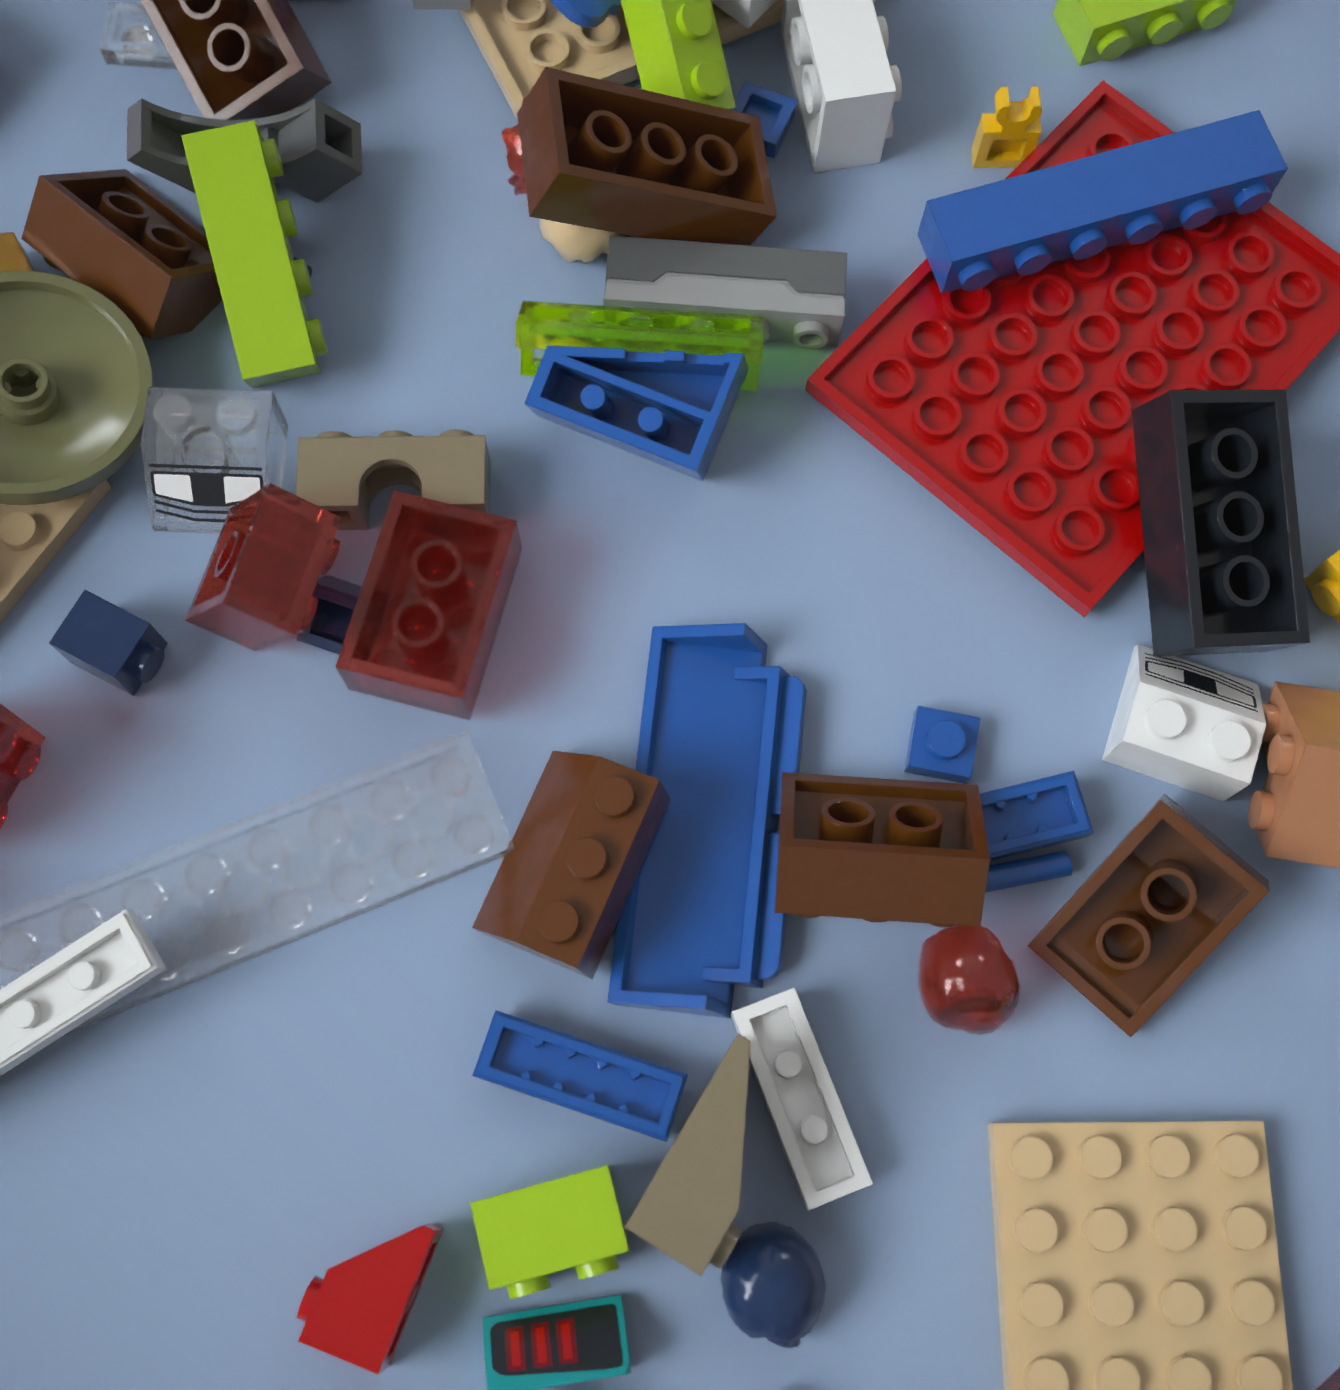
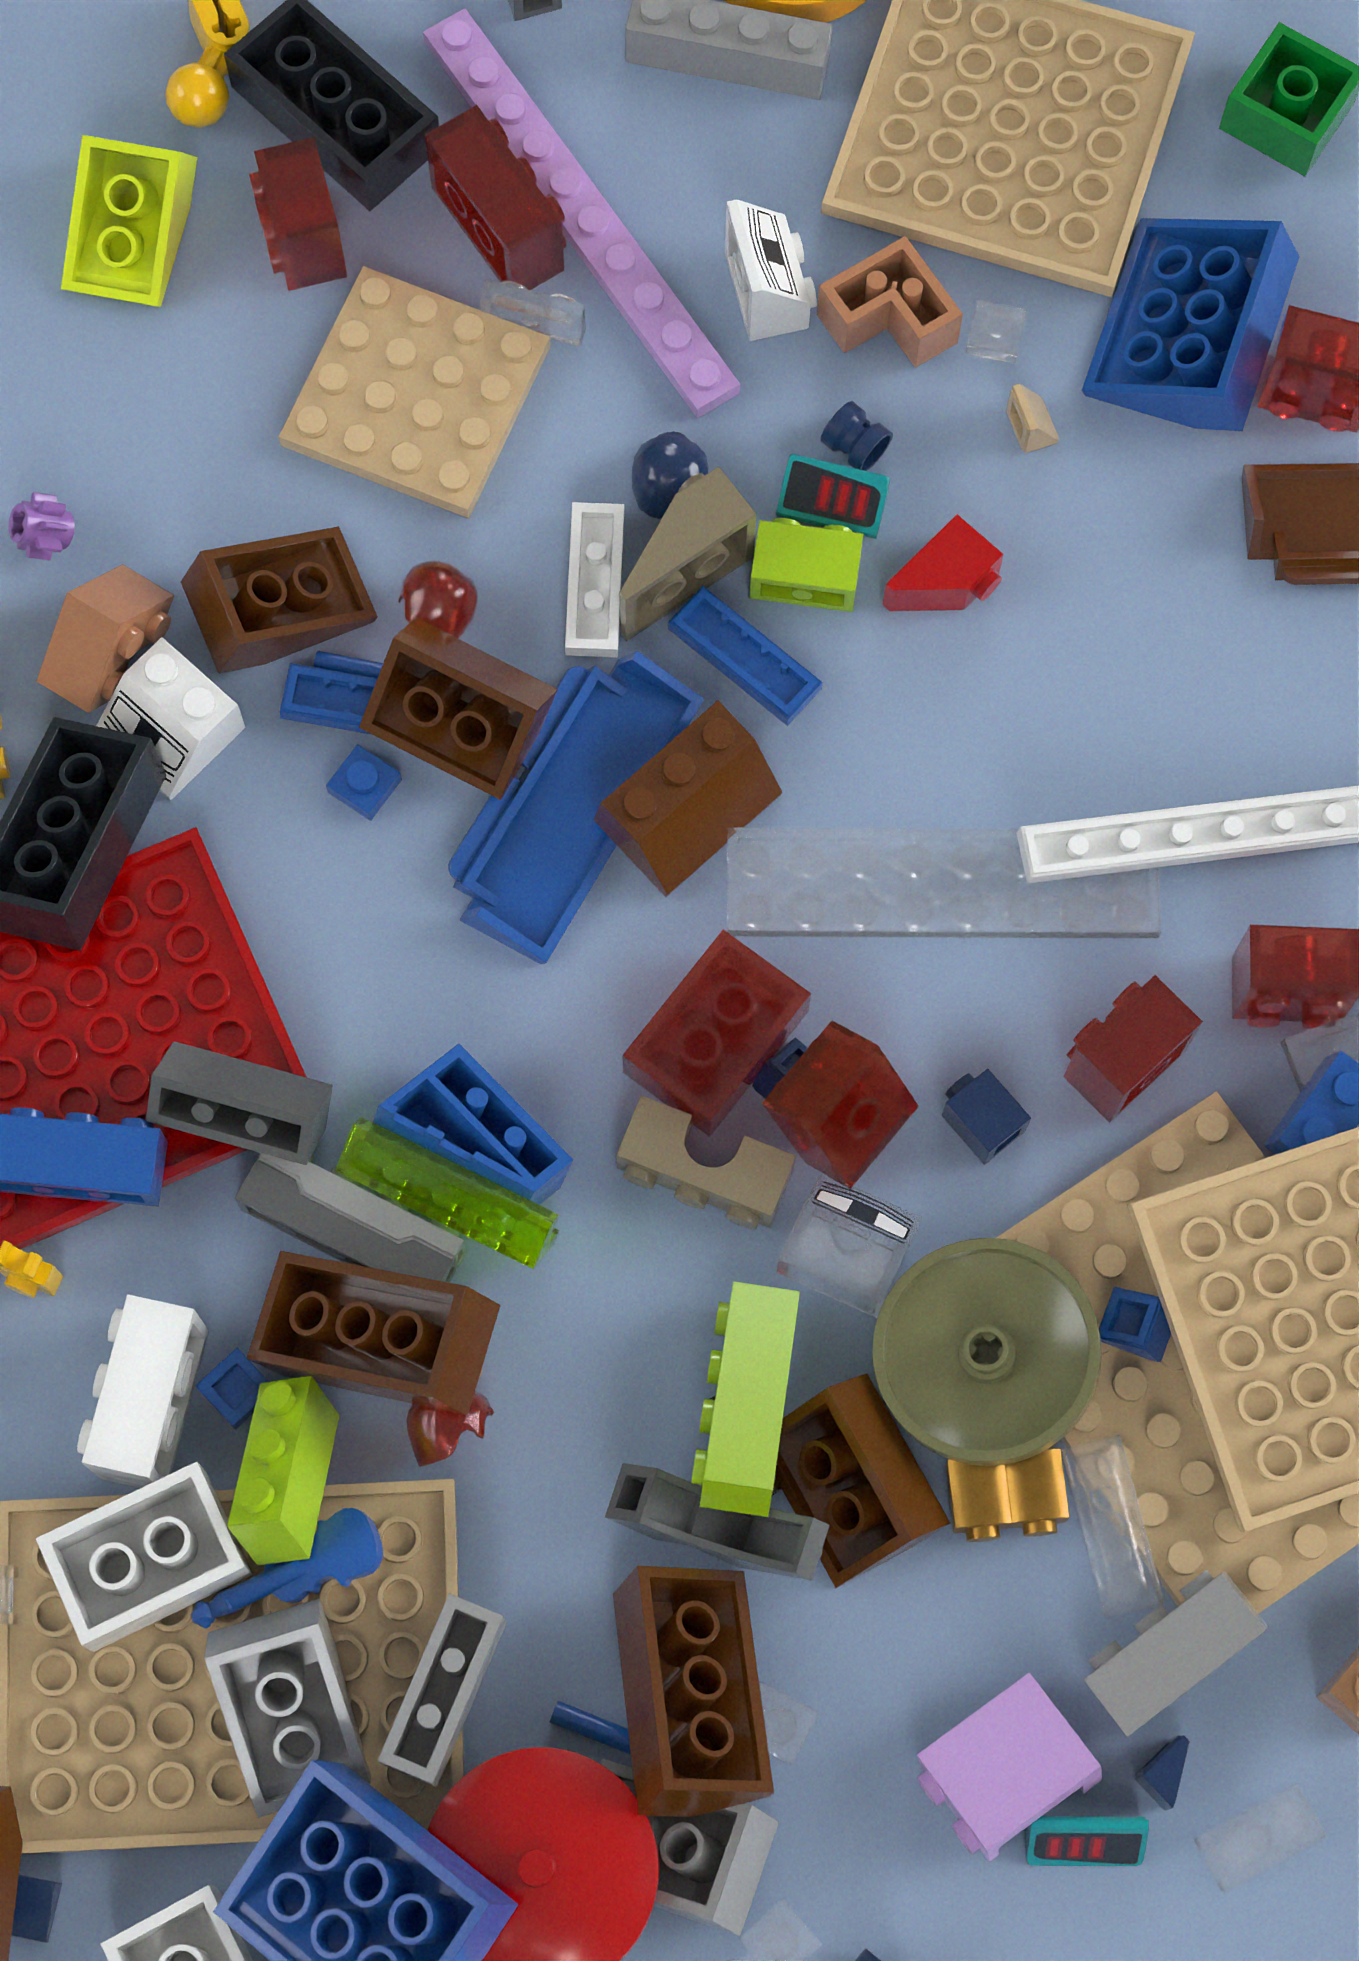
camera: 155 degrees left, 0 degrees up
(889, 326) = (239, 1103): none -> dark grey brick

